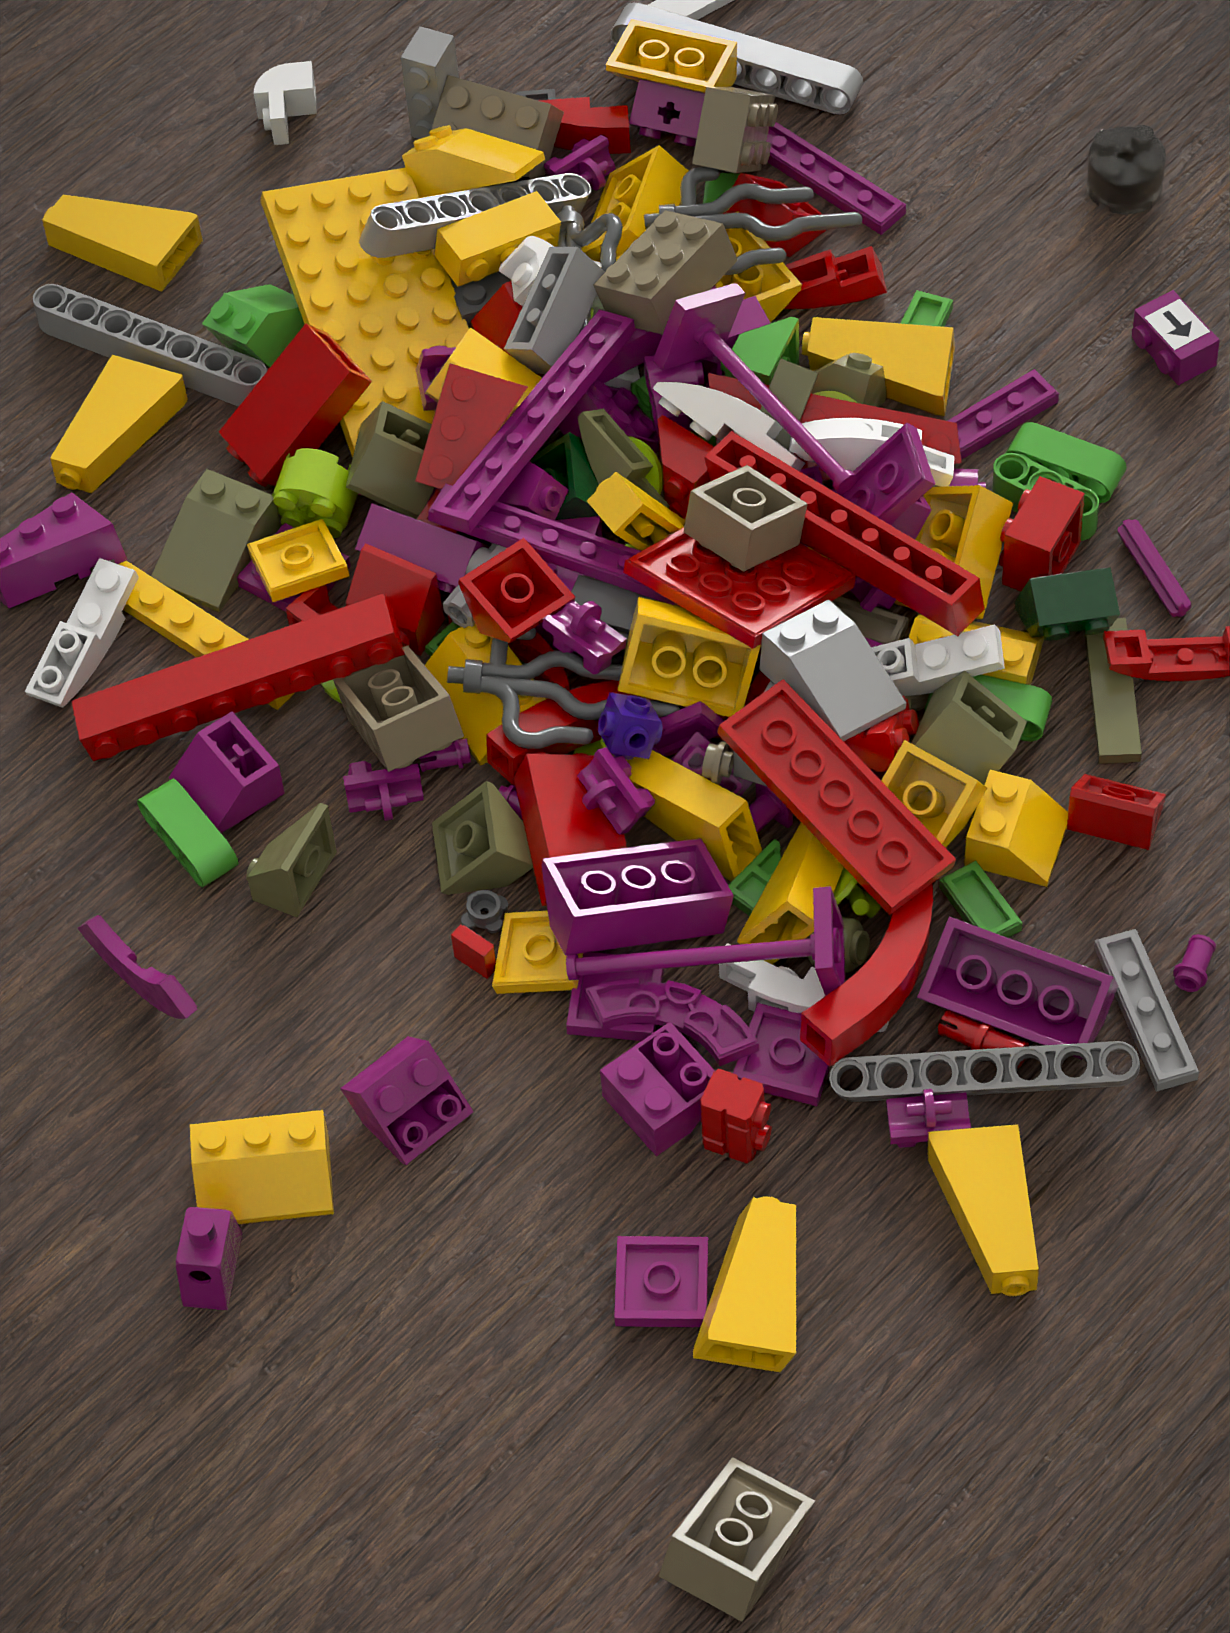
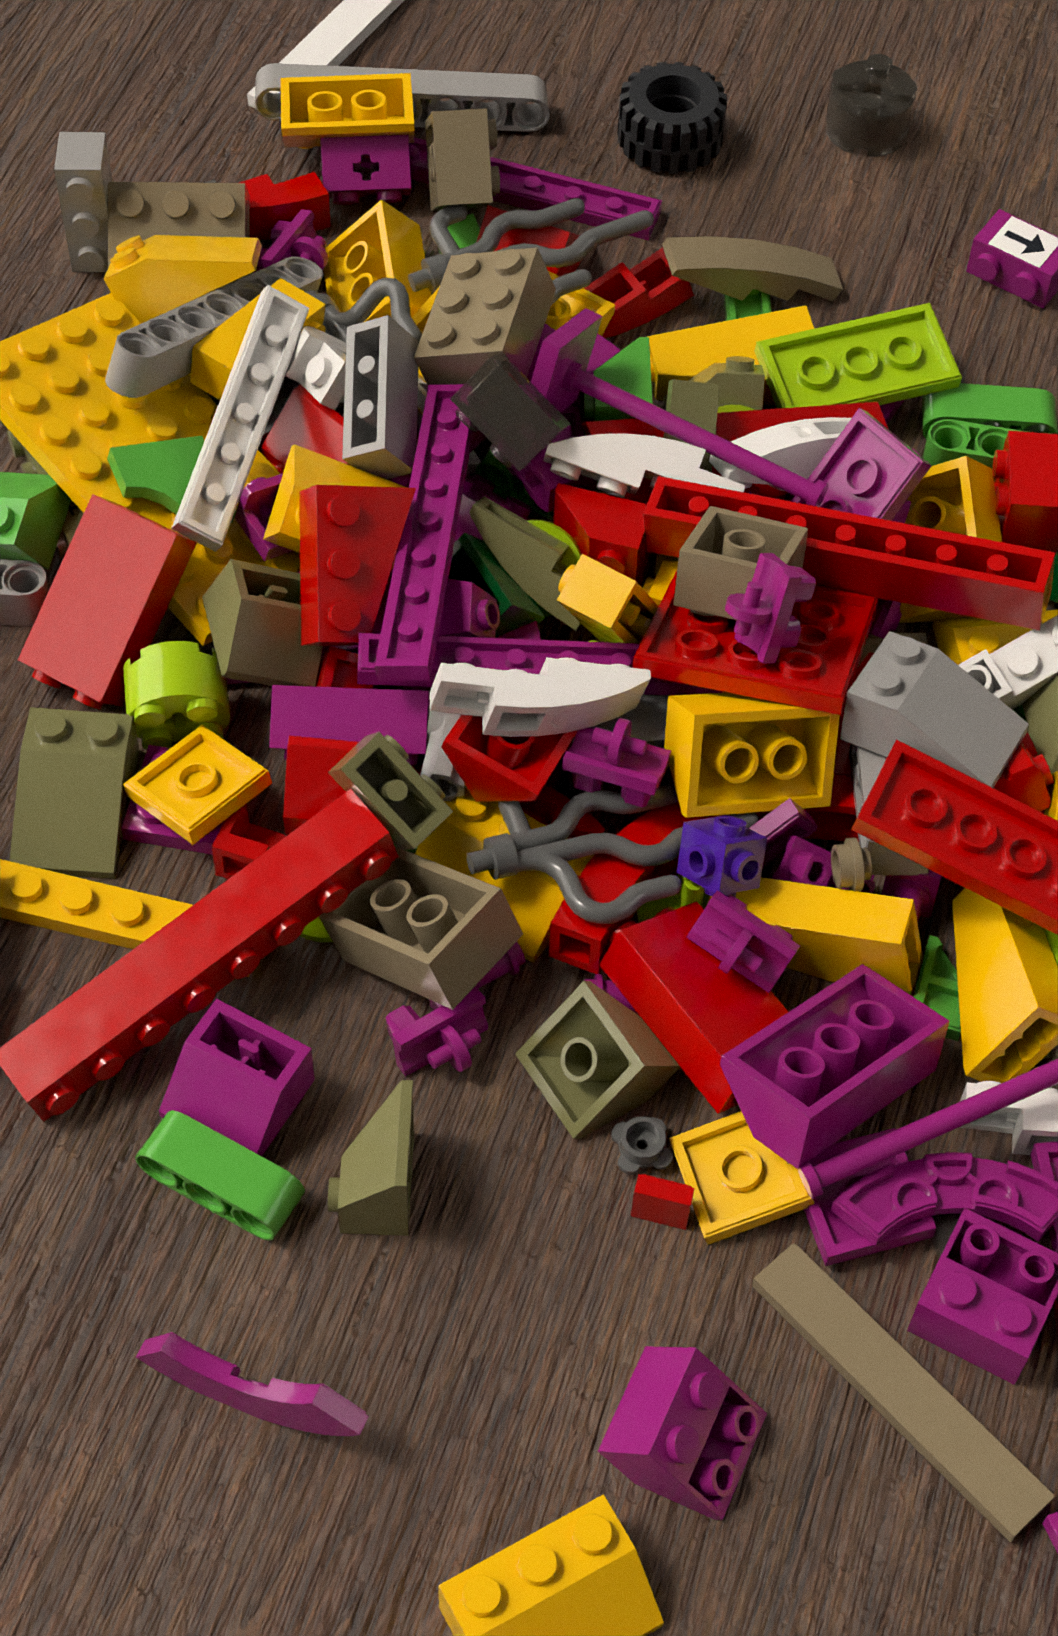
camera: 30 degrees left, 0 degrees up
(384, 326) = (156, 469): none -> bright green tile
(413, 604) = (392, 790): none -> olive brick
(448, 294) = (240, 419): none -> white tile
(558, 576) = (556, 701): none -> white slope
(572, 1129) = (903, 1392): none -> dark tan tile
(637, 348) = (508, 412): none -> clear smoke brick
(726, 552) = (766, 607): none -> magenta hips
(933, 279) = (742, 265): none -> dark tan slope
(949, 134) = (671, 117): none -> black tyre
(971, 386) = (860, 361): none -> lime tile

